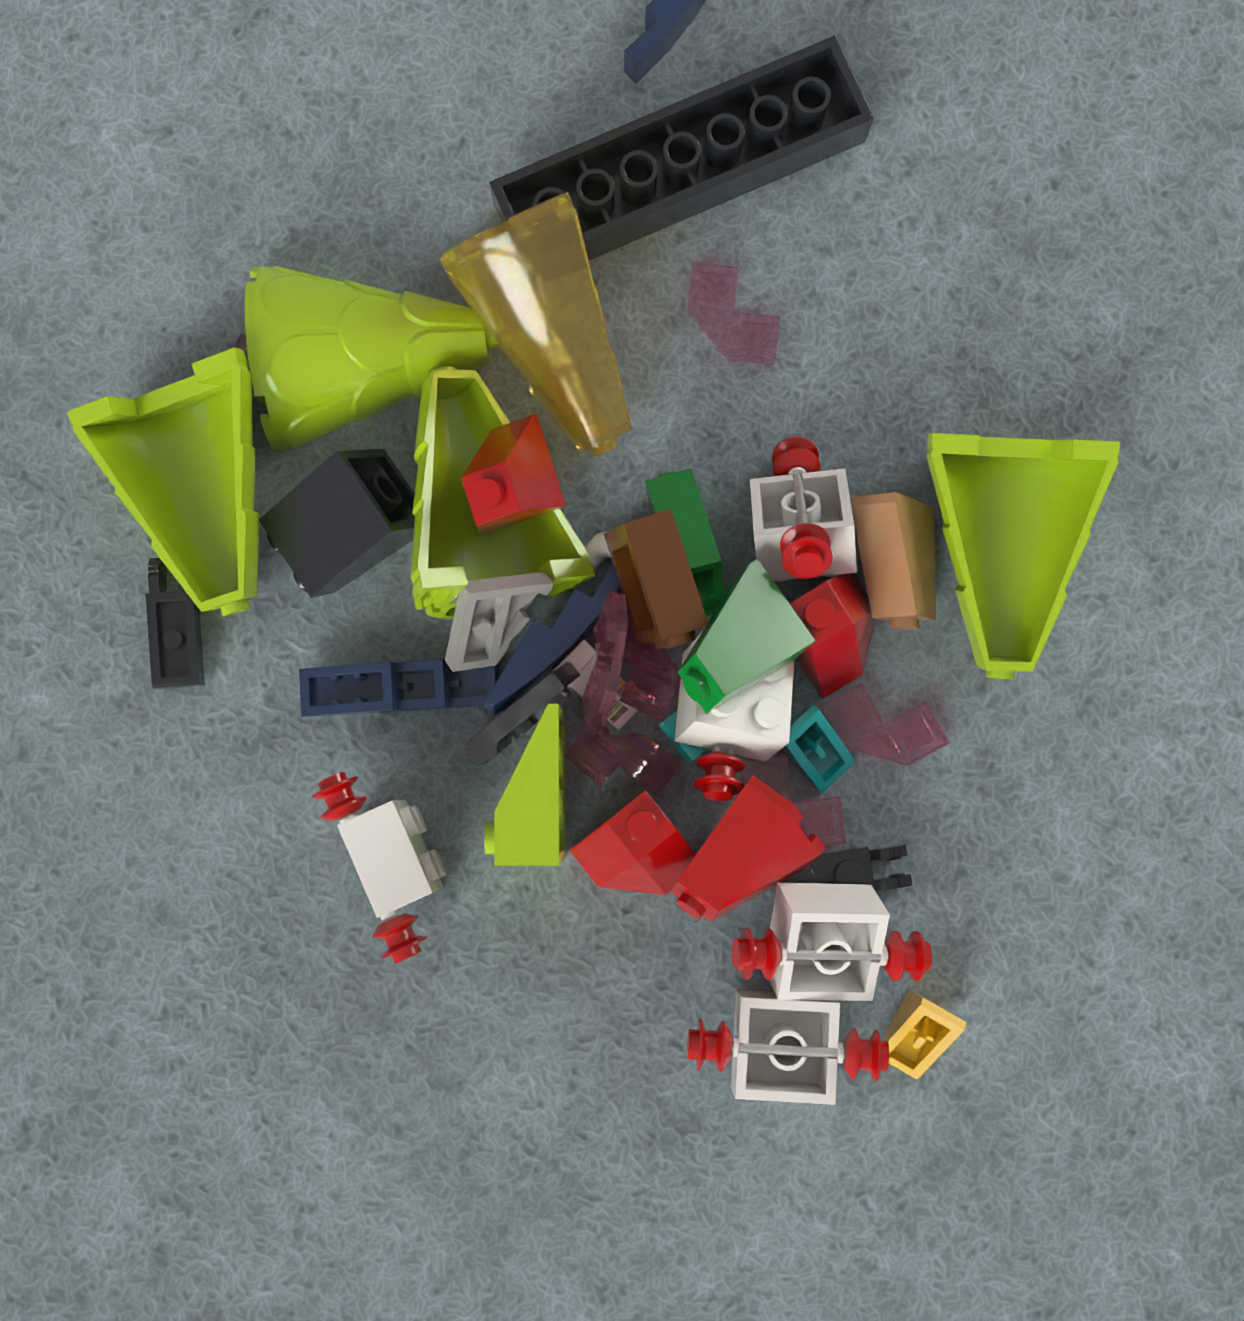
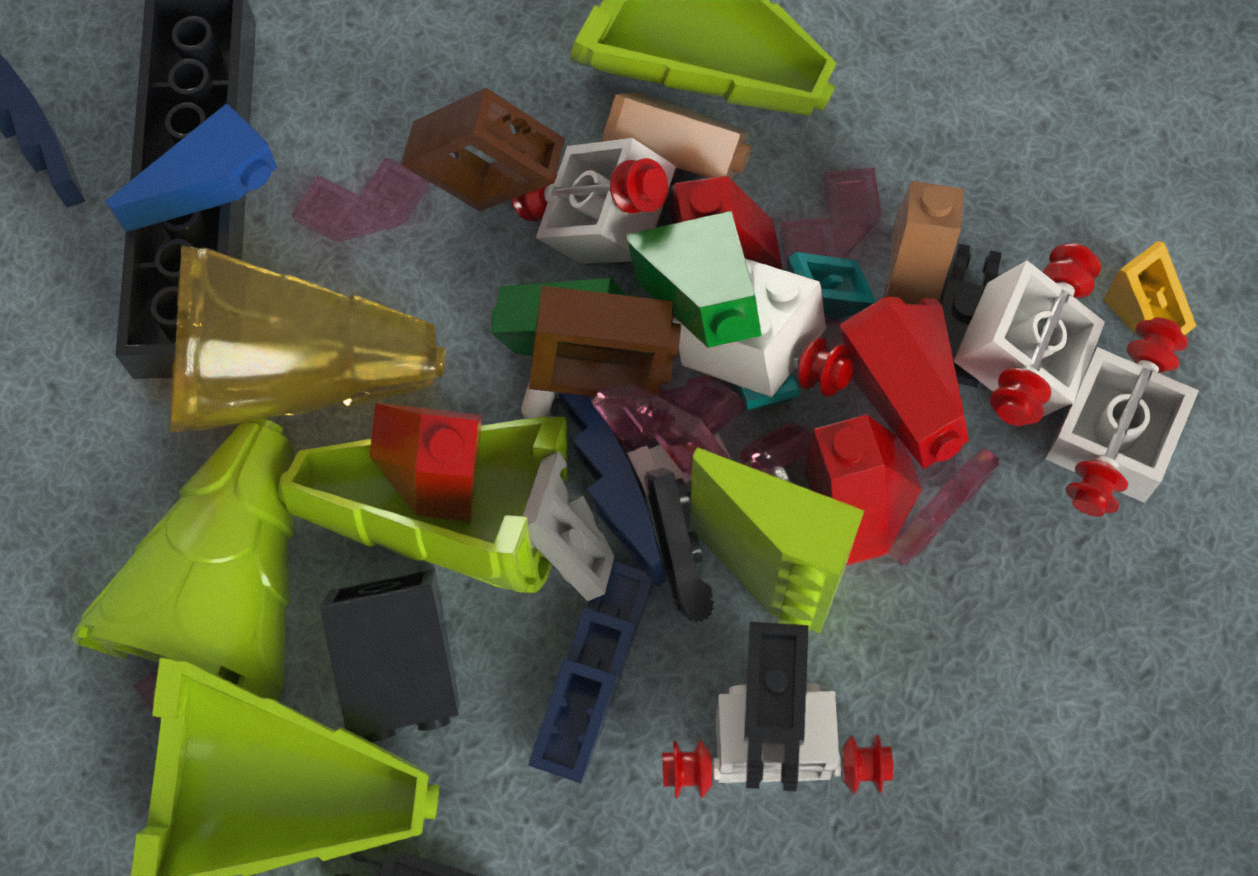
camera: 60 degrees left, 15 degrees down
(402, 847) = (775, 697): none -> black hinge
(659, 925) = (944, 504): none -> clear pink tile
(679, 172) = (201, 171): none -> blue slope
(798, 390) = (483, 120): none -> reddish brown window
(874, 817) = (924, 241): none -> medium nougat slope

